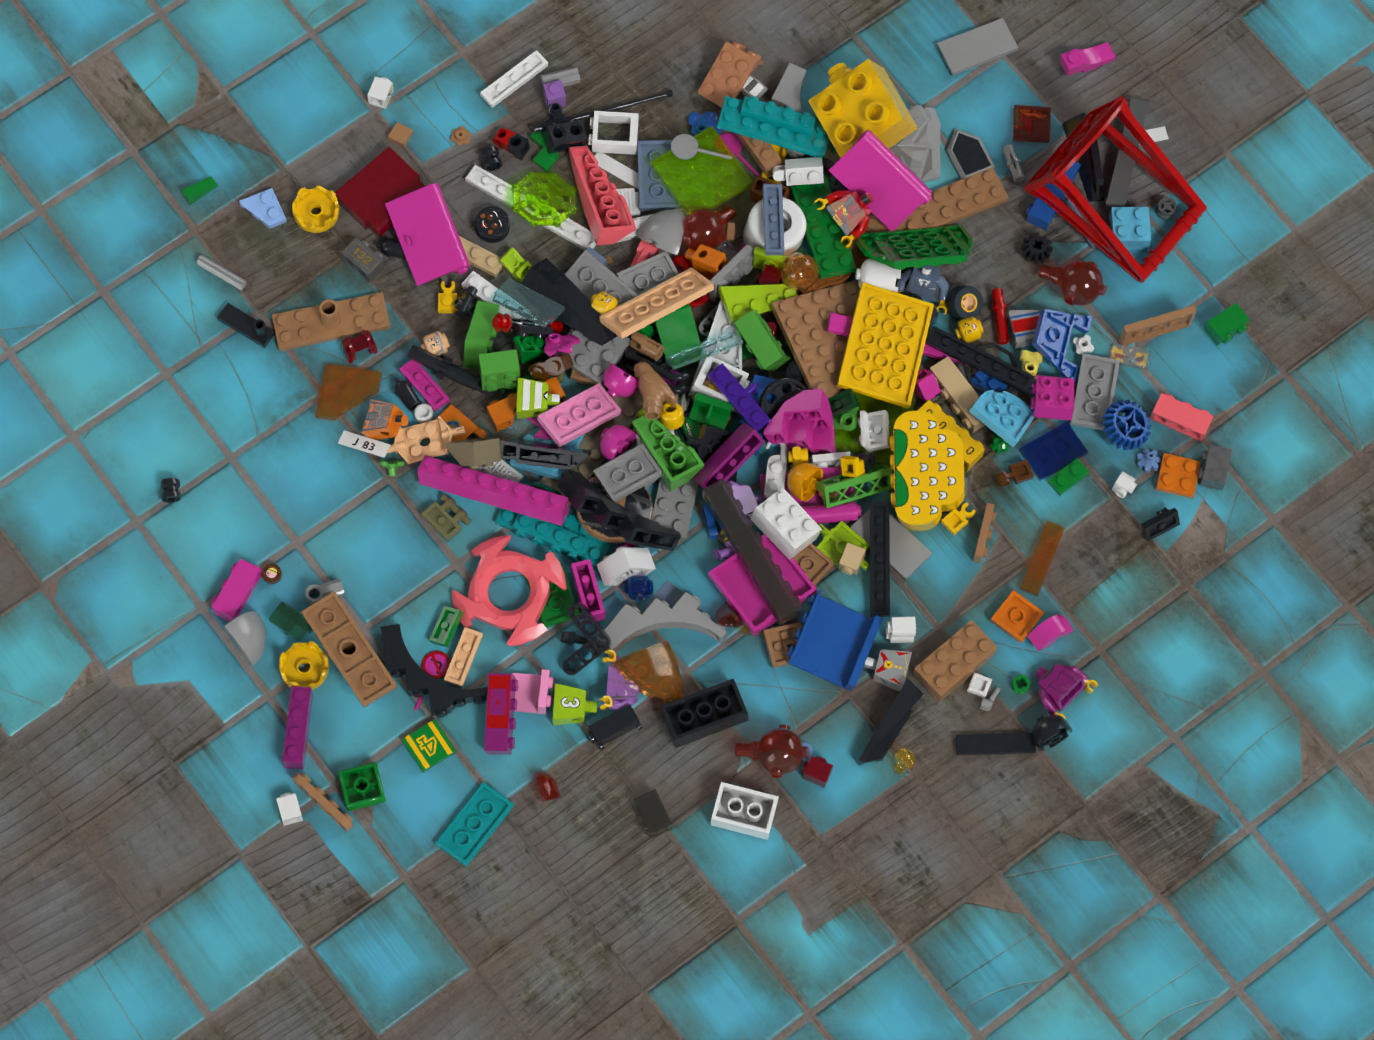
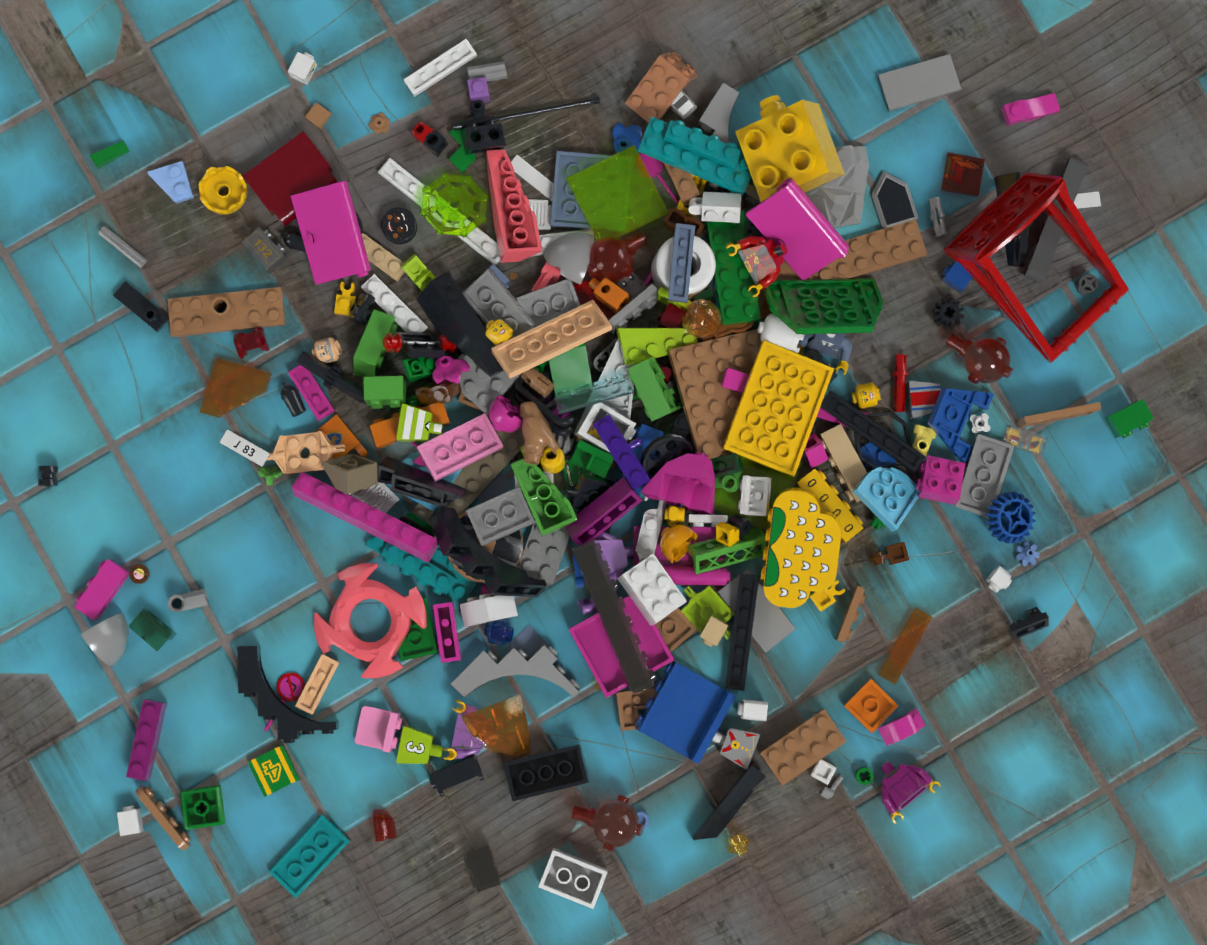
camera: 10 degrees right, 15 degrees up
(300, 654) = (146, 676): yellow plate -> none
(343, 637) = (192, 653): medium nougat plate -> none
(383, 420) = (264, 427): orange torso -> none
(423, 413) = (307, 421): white tile -> none
(442, 521) = (311, 537): olive plate -> none
(446, 626) = (303, 650): green plate -> none
(491, 159) = (406, 153): black wheel -> none
(500, 714) = (345, 750): magenta brick -> none
(527, 303) = (422, 320): clear light blue windscreen -> none
(570, 638) = (433, 680): black bar -> none
(592, 645) = (443, 689): black beam -> none
(609, 146) = (549, 157): white window -> none
(616, 441) = (492, 480): dark pink cylinder -> none
(686, 147) = (604, 165): light grey piece -> none
(726, 616) = (582, 674): clear red brick -> none
(730, 233) = (638, 264): medium nougat tile -> none
(817, 771) = (650, 843): dark red brick -> none
(965, 295) = (865, 366): black wheel -> none
(995, 744) = (830, 834): black tile -> none
(1050, 731) = (885, 832): black cylinder -> none
(1053, 451) = (932, 533): clear blue tile -> none
(1068, 477) = (944, 562): green plate -> none
(1131, 226) = (1047, 302): medium azure brick -> none
(1178, 475) = (1054, 574): orange plate -> none
(1181, 417) = (1068, 513): coral brick -> none
(1215, 467) = (1093, 571): flat silver brick -> none

